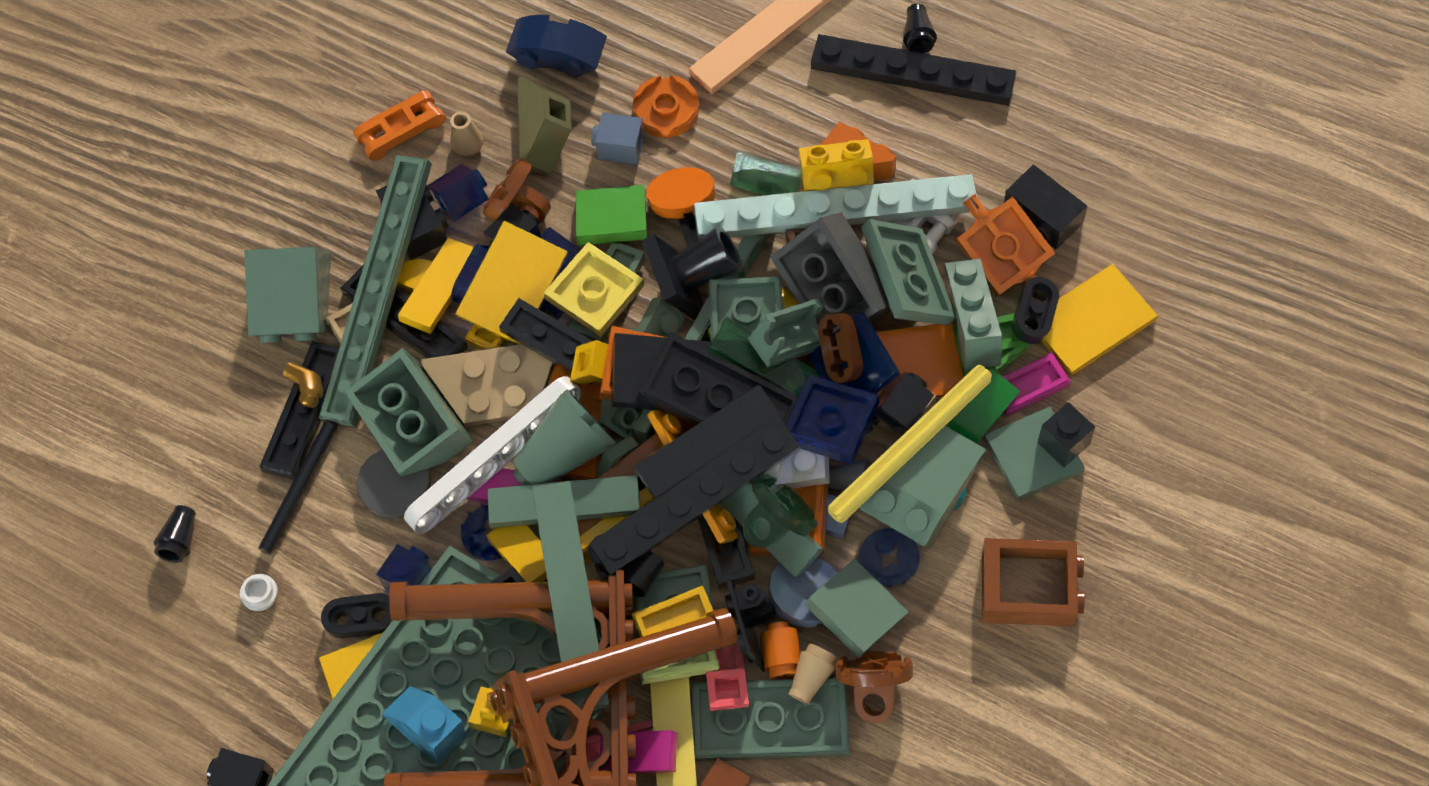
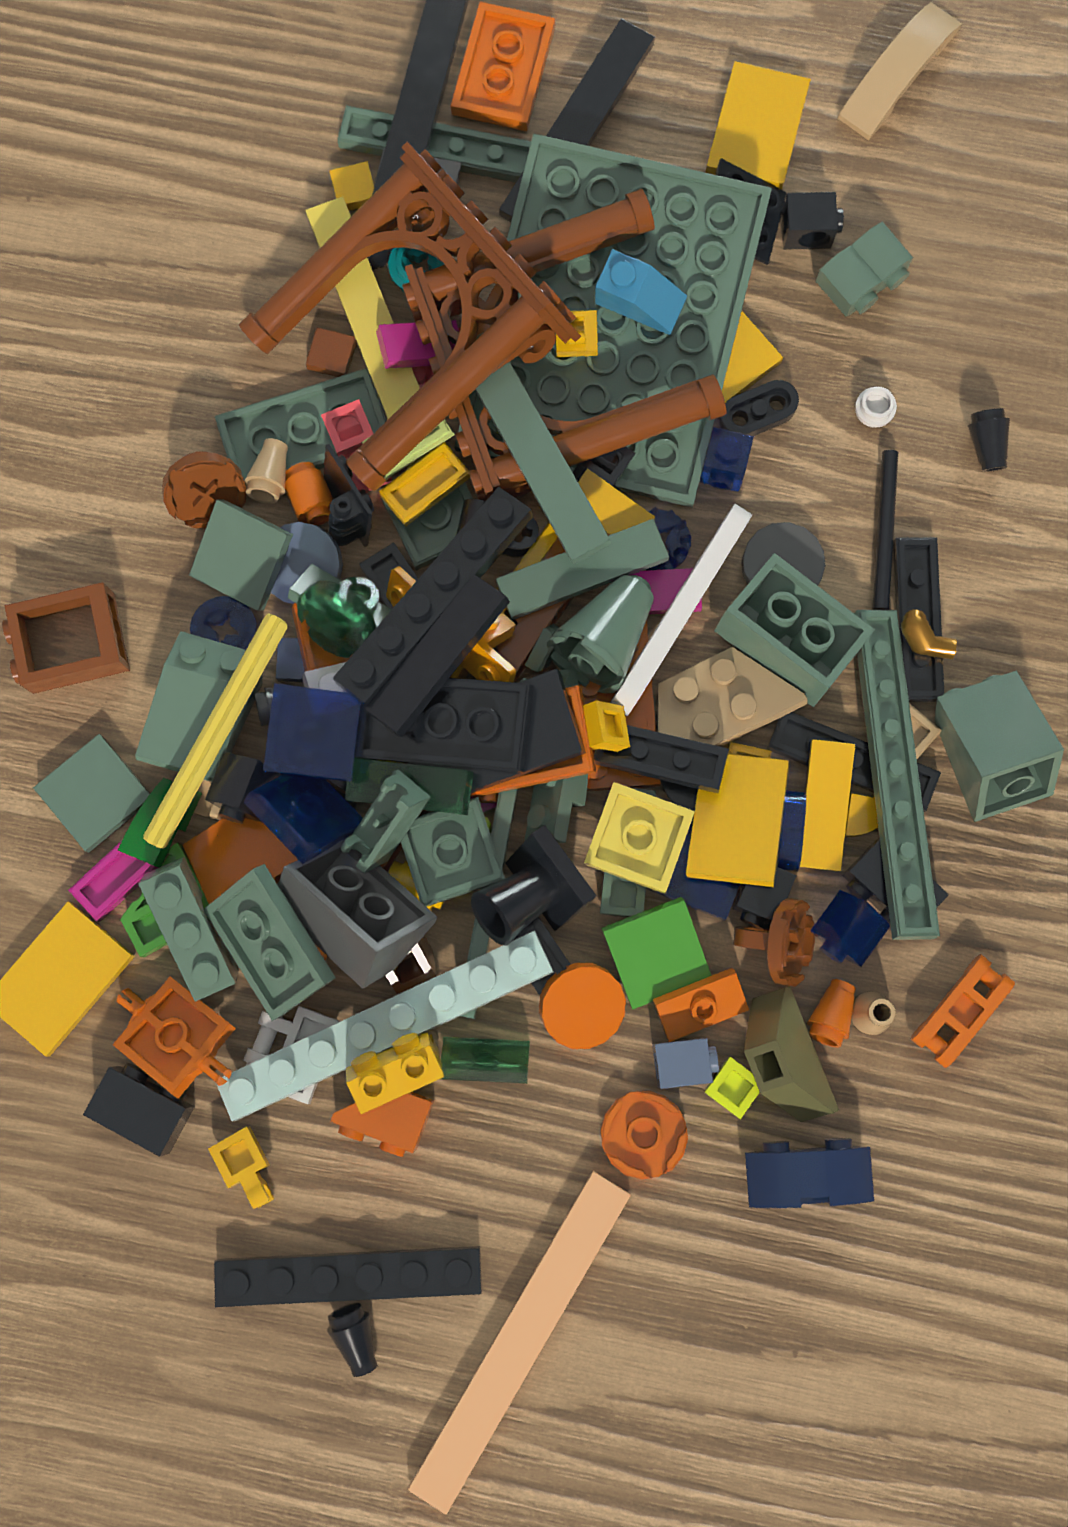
camera: 160 degrees right, 15 degrees up
(212, 714) = (864, 270): none -> sand green brick
(495, 144) = (833, 1014): none -> orange cone
(586, 114) = (733, 1087): none -> neon yellow plate
(591, 175) = (701, 1004): none -> orange plate
(840, 347) = (319, 808): reddish brown beam -> none
(971, 154) = (240, 1161): none -> yellow plate
(1035, 313) = (115, 955): black plate -> none
(1066, 434) = (53, 806): black brick -> none

